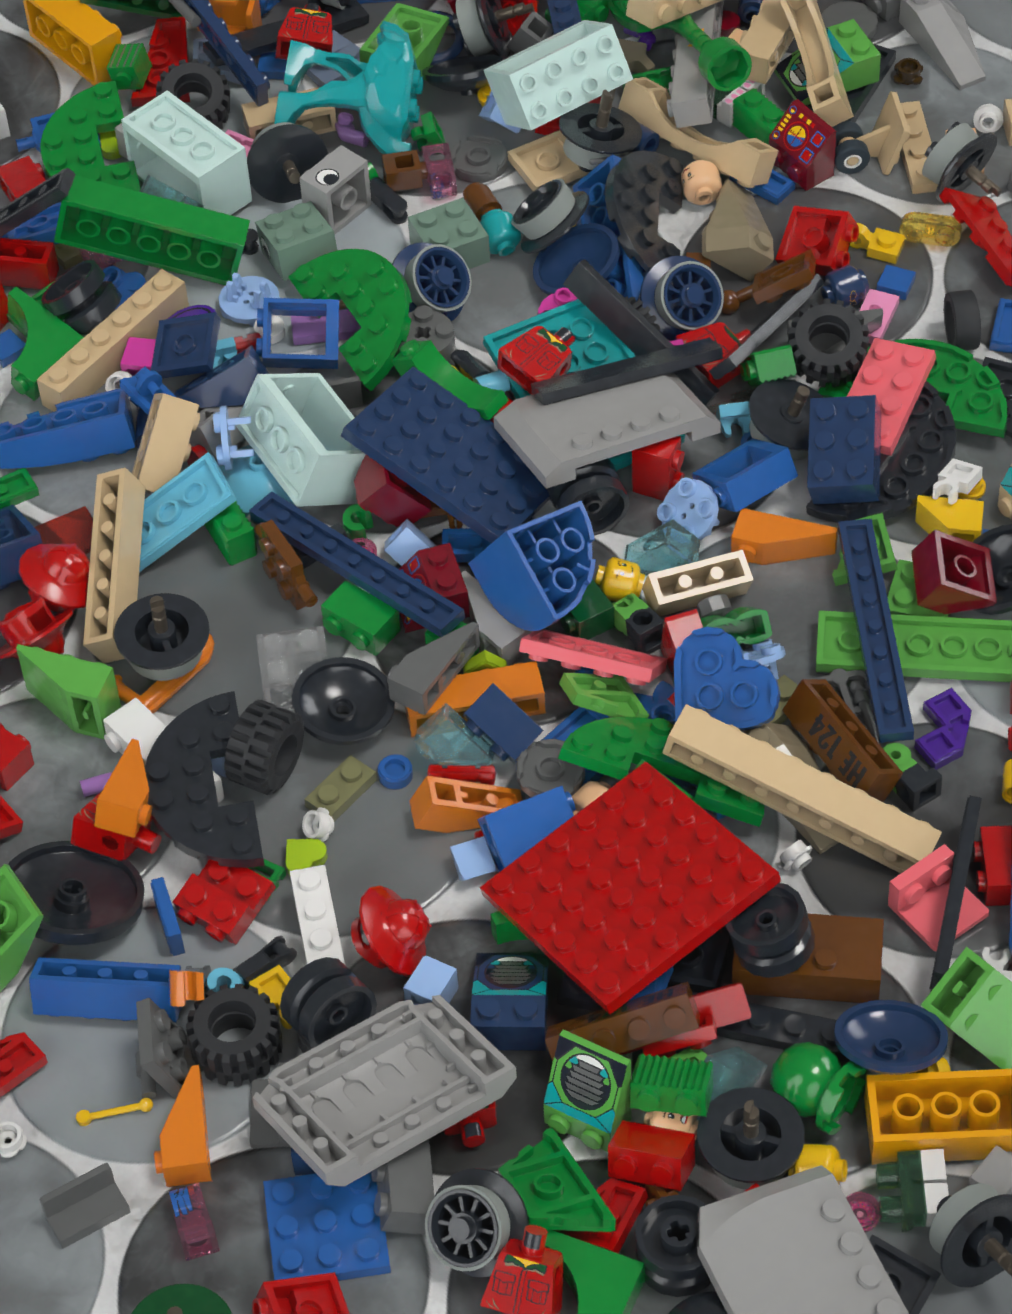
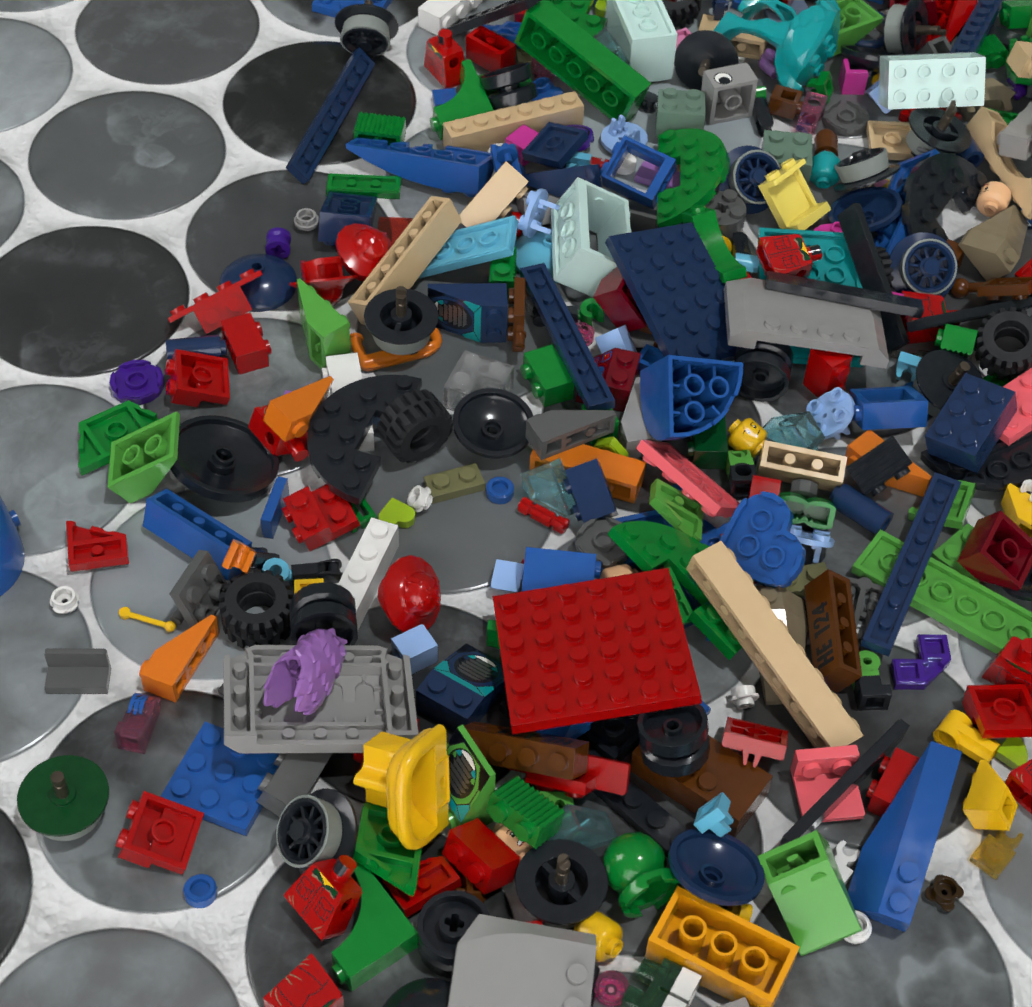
camera: 25 degrees right, 0 degrees up
(233, 583) = (472, 310): none -> dark blue slope
(360, 1060) = (306, 671): none -> medium lavender head
(456, 805) = (517, 529): orange slope -> none
(457, 111) = (852, 81): none -> dark pink panel
(491, 286) = (791, 197): none -> light yellow panel
(538, 1117) = (409, 781): none -> yellow piece
(780, 543) = (879, 466): none -> black brick
(785, 598) = (861, 508): none -> dark blue brick
(842, 892) = (755, 739): none -> red piece
(856, 987) = (715, 816): none -> medium azure tile

